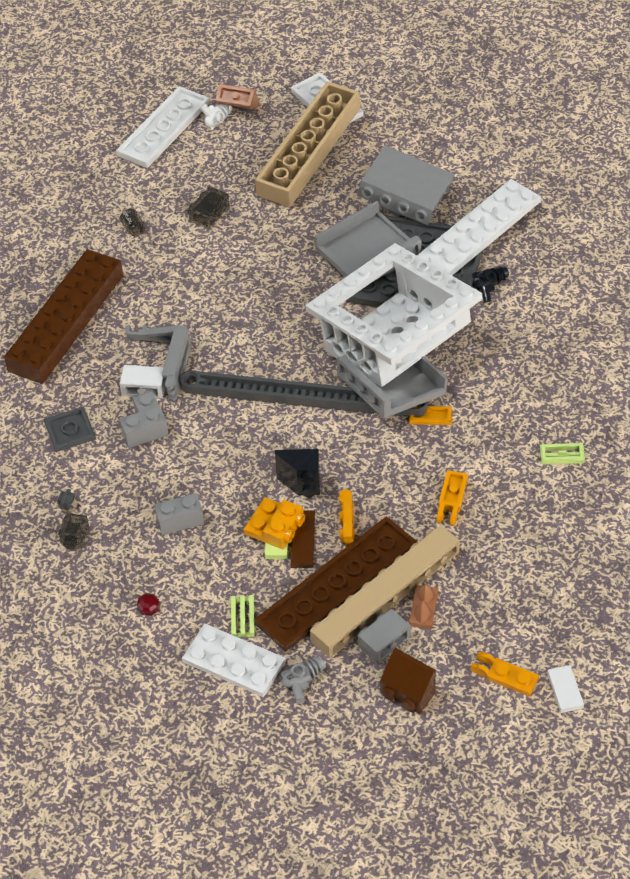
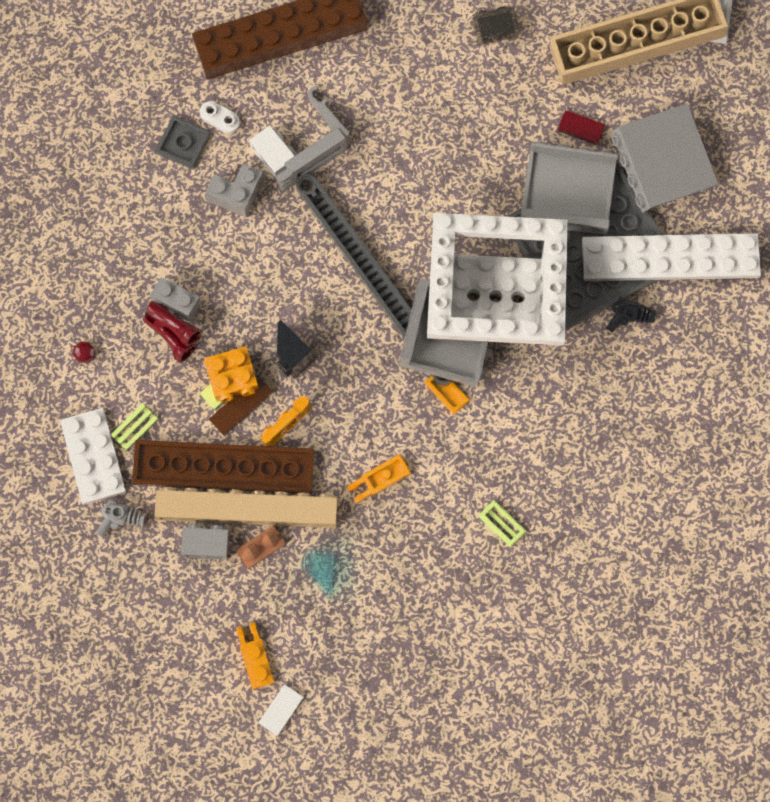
camera: 45 degrees right, 25 degrees up
(65, 499) = (116, 205): dark grey plate -> none
(73, 531) = (93, 240): clear smoke brick -> none
(79, 395) = (219, 116): none -> white plate
(213, 539) = (176, 332): none -> dark red piece
(327, 218) = (581, 127): none -> dark red tile
(408, 681) = (176, 598): reddish brown slope -> none
(484, 580) = (320, 570): none -> clear light blue slope

